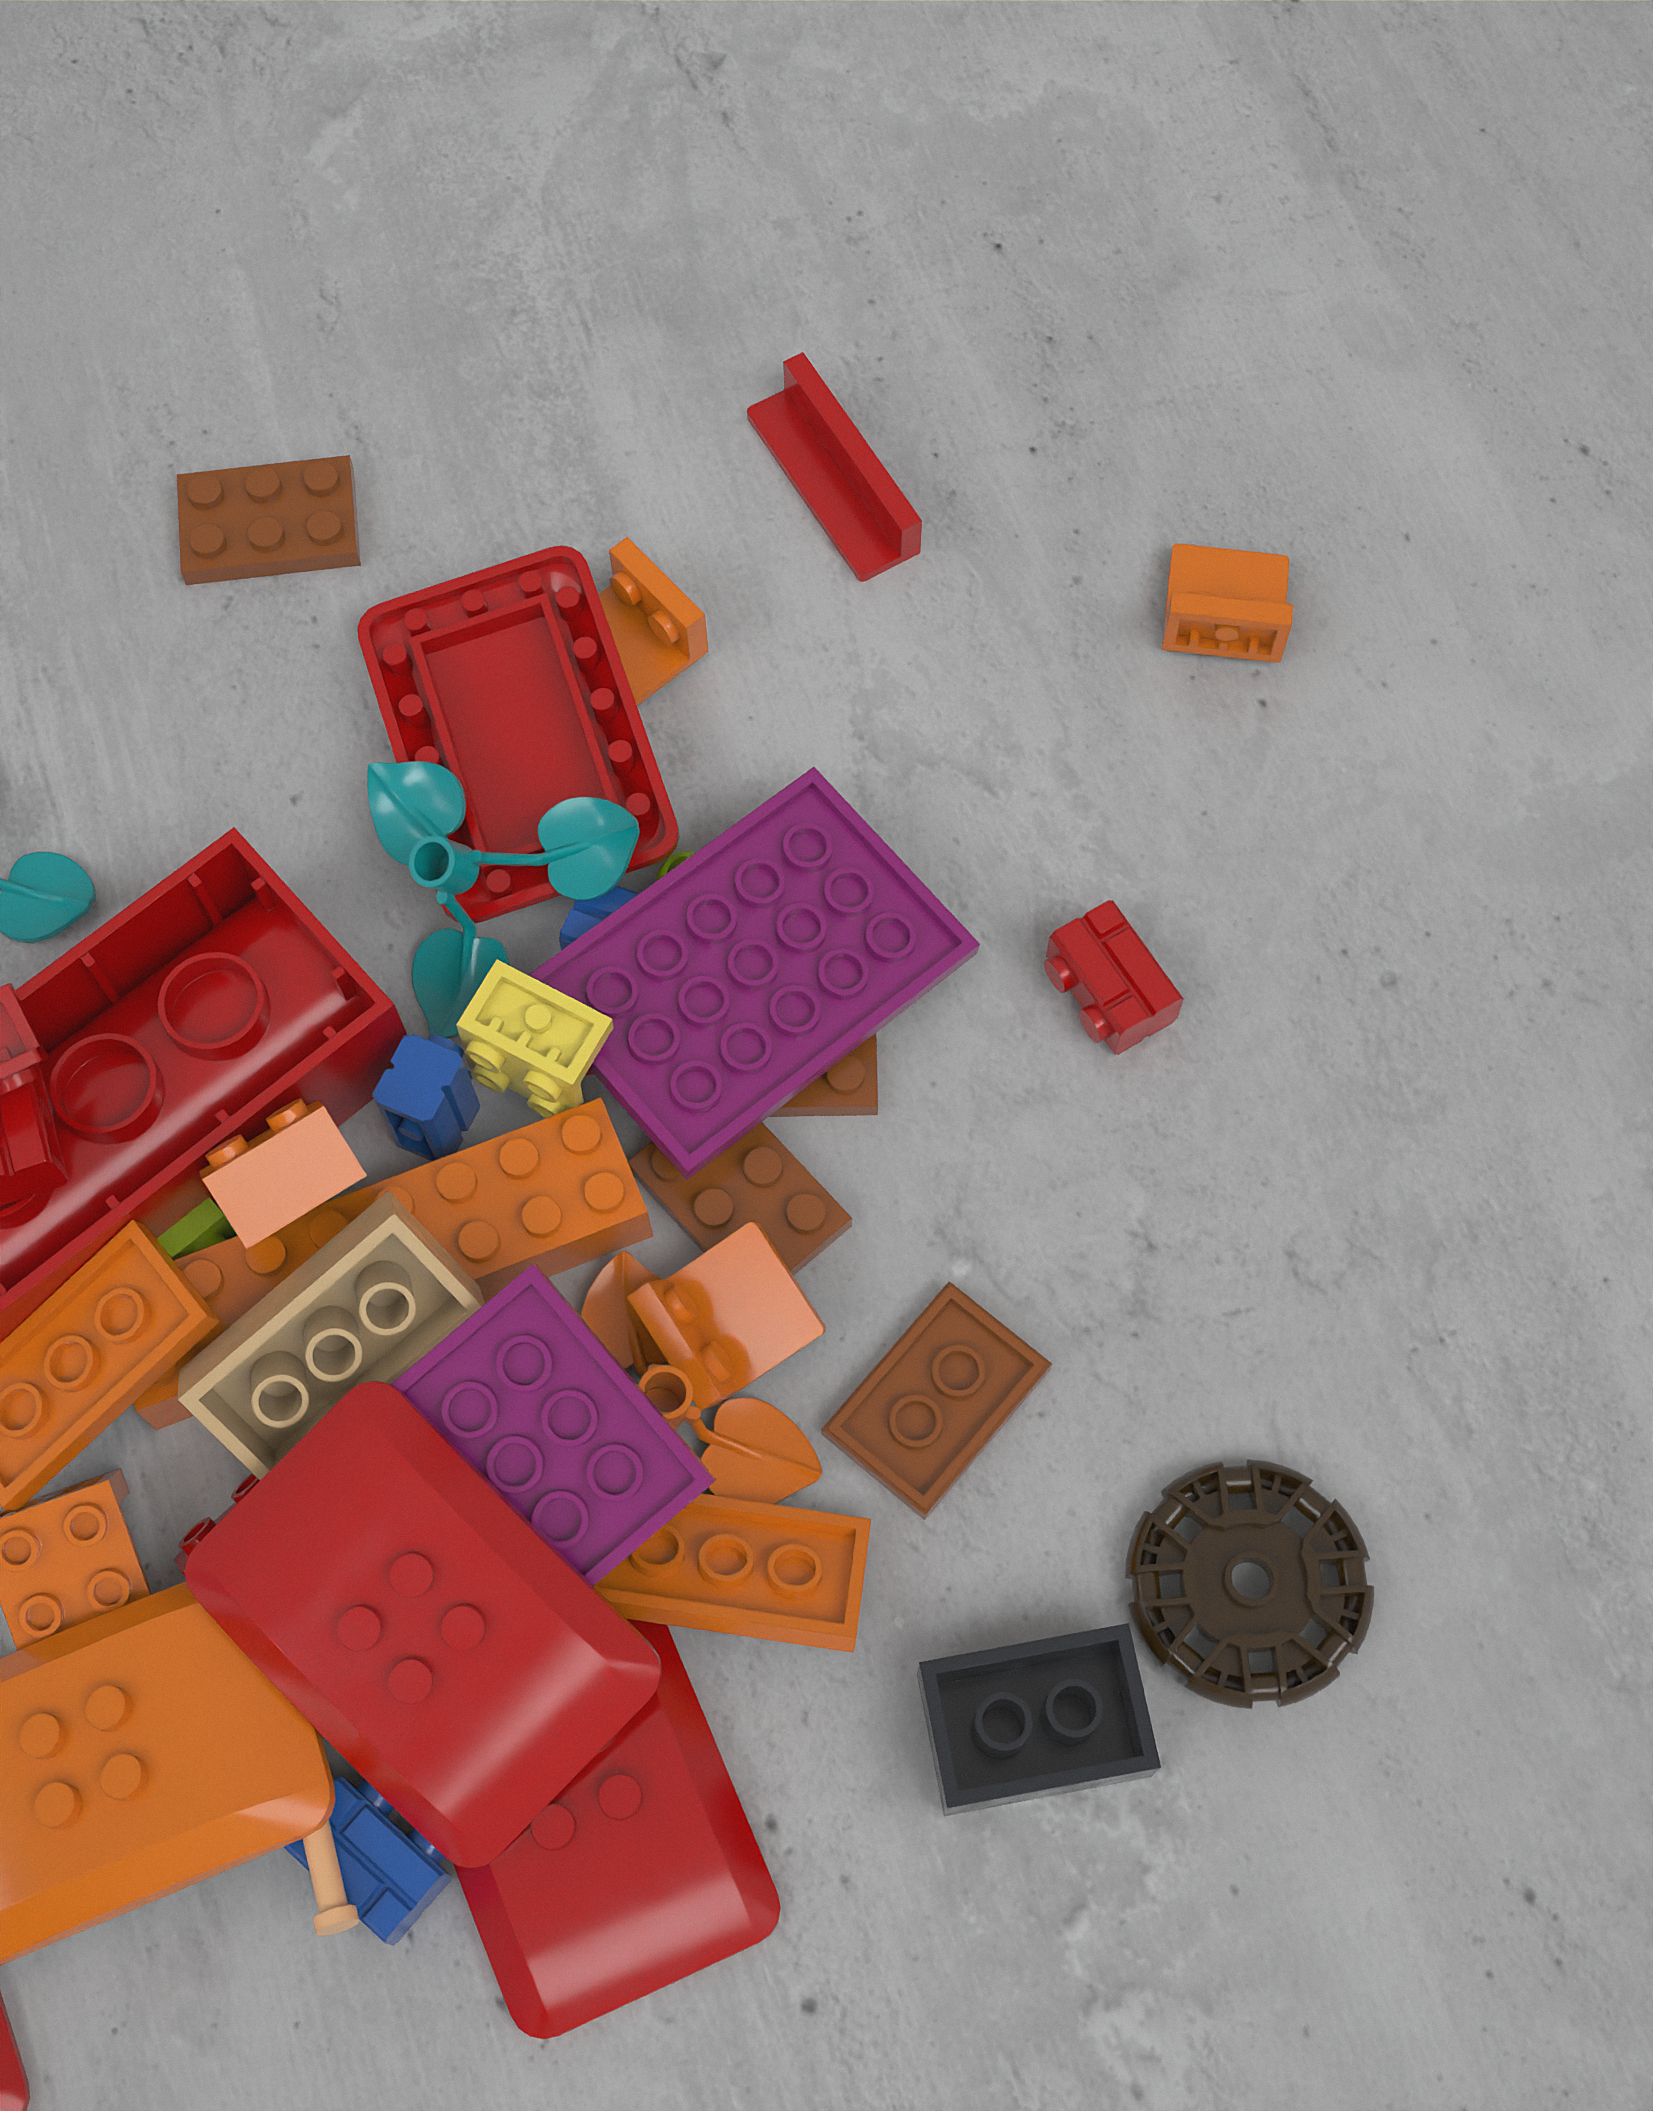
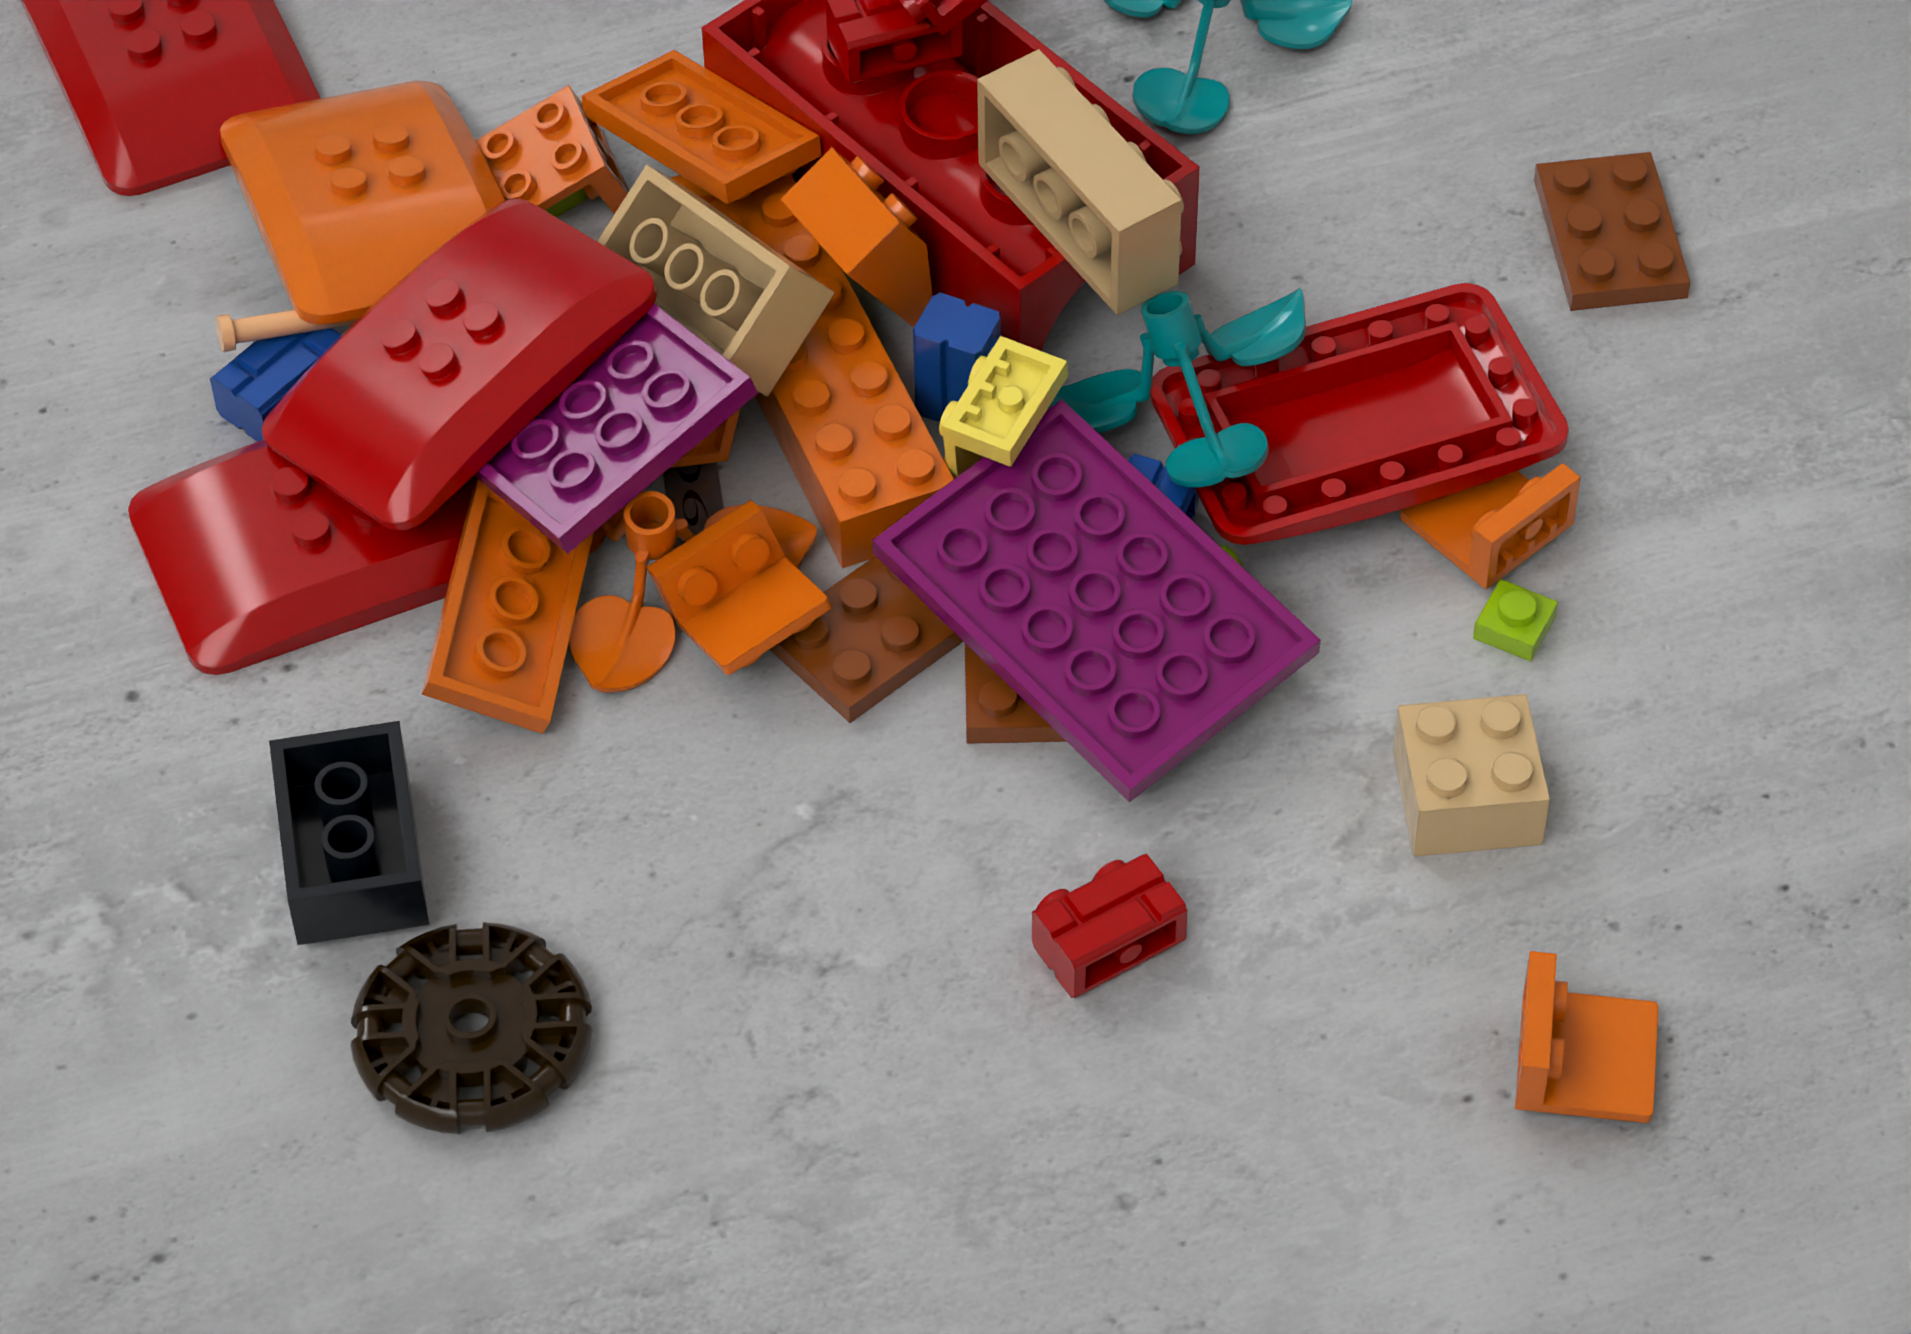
camera: 90 degrees right, 15 degrees down
(289, 916) = (1079, 181): none -> tan brick
(745, 629) = (1515, 620): none -> lime plate
(836, 472) = (1722, 695): red panel -> none
(936, 1400) = (669, 784): dark orange tile -> none
(941, 666) = (1470, 775): none -> tan brick

